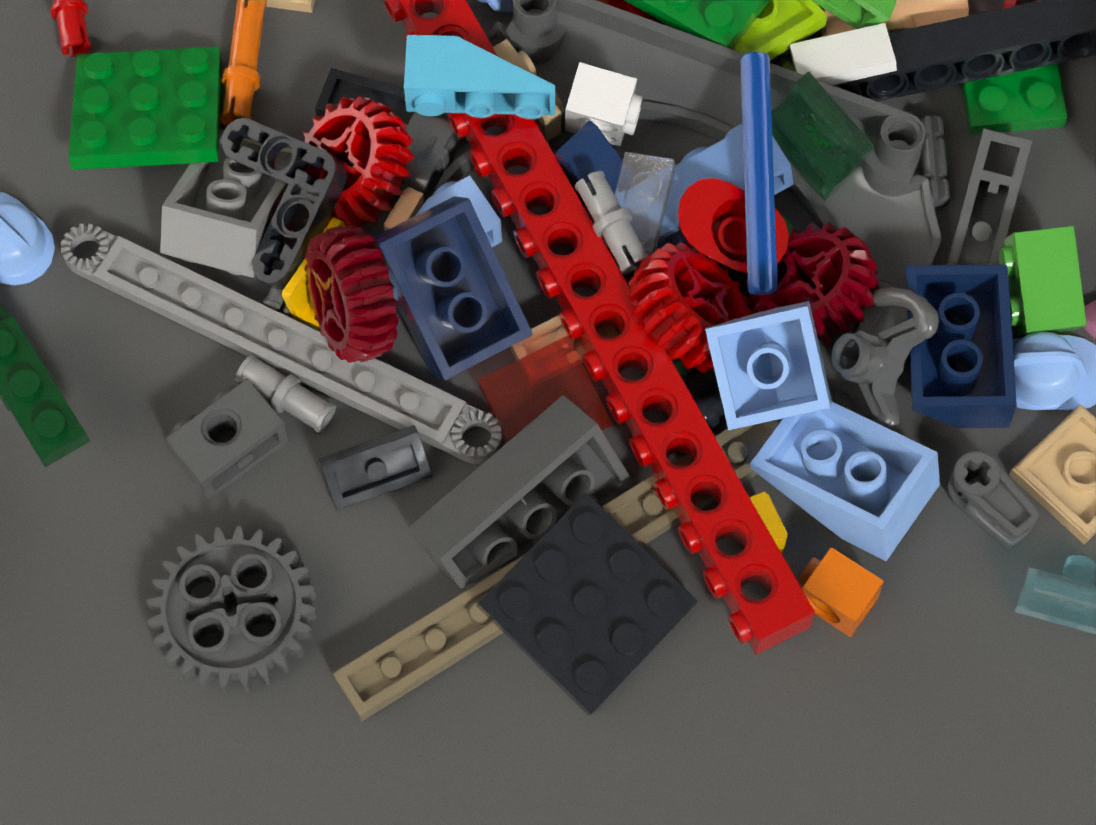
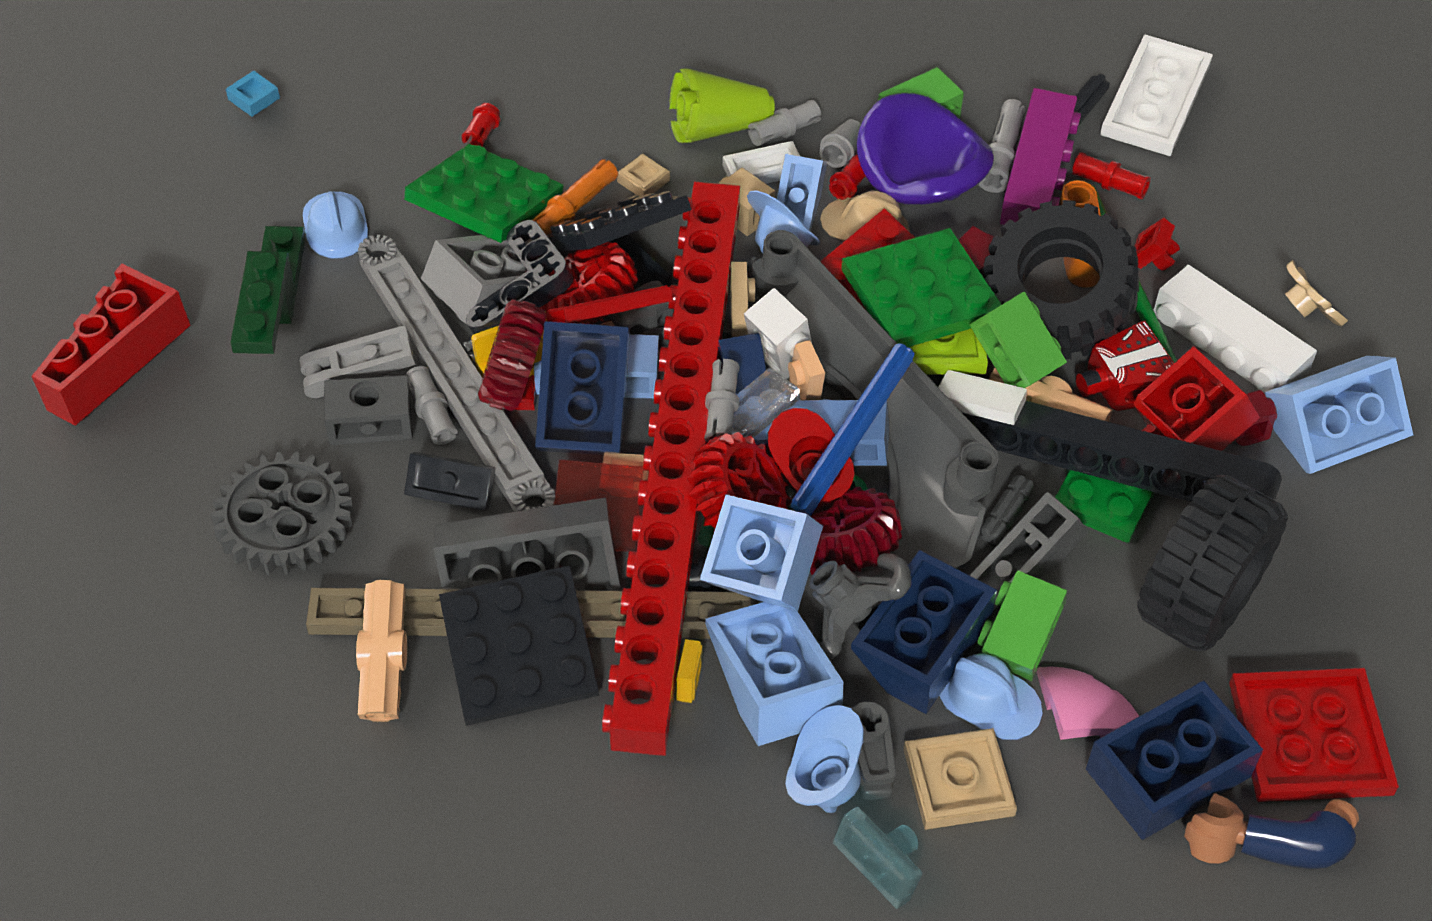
camera: 30 degrees right, 15 degrees down
(170, 390) = (357, 359): none -> light grey plate
(332, 69) = (611, 223): none -> black plate
(414, 178) = (610, 305): none -> red tile
(460, 77) = (688, 260): medium azure slope -> none
(463, 696) = (381, 651): none -> light nougat piece
(657, 133) = (806, 371): none -> light nougat plate
(818, 136) = (916, 431): clear green slope -> none
(840, 590) = (707, 746): orange brick -> none
(964, 535) = (826, 759): none -> light blue piece

